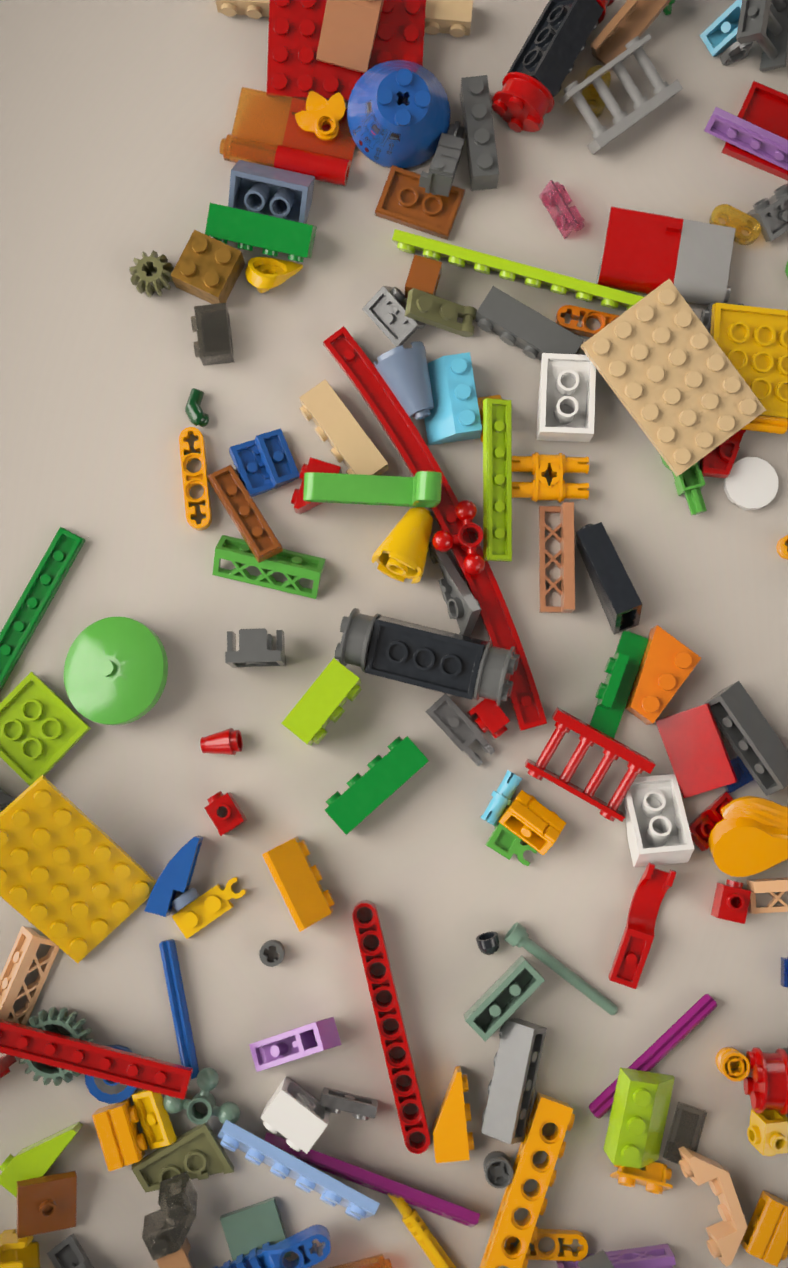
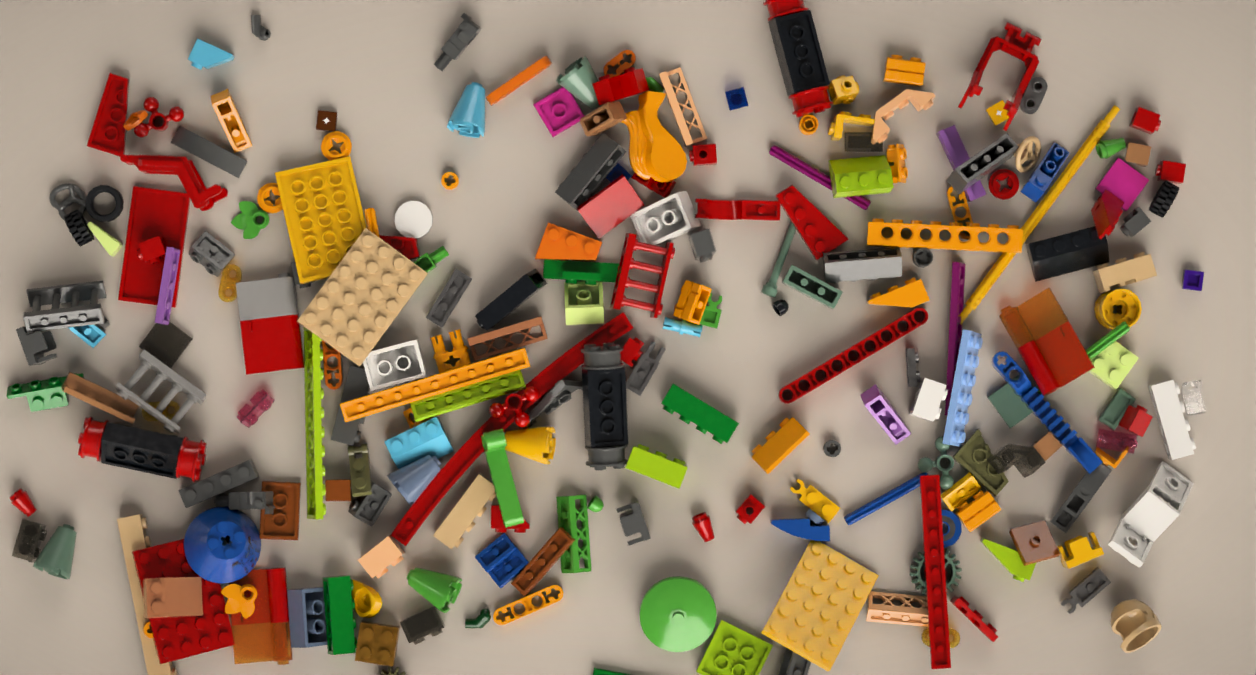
camera: 110 degrees left, 5 degrees up
(255, 364) = (435, 587): none -> bright green cone
(298, 607) = (595, 504): none -> bright green hinge
(317, 304) = (381, 556): none -> light nougat brick
(525, 439) = (434, 384): none -> light orange plate
(573, 673) = (584, 303): none -> yellowish green slope
(590, 1023) = (811, 224): none -> red wing
(612, 862) = (702, 245): none -> dark grey brick
(633, 497) = (449, 298): none -> flat silver plate
(679, 125) = (166, 343): none -> clear smoke tile
(726, 1129) = (836, 126): none -> yellow bracket

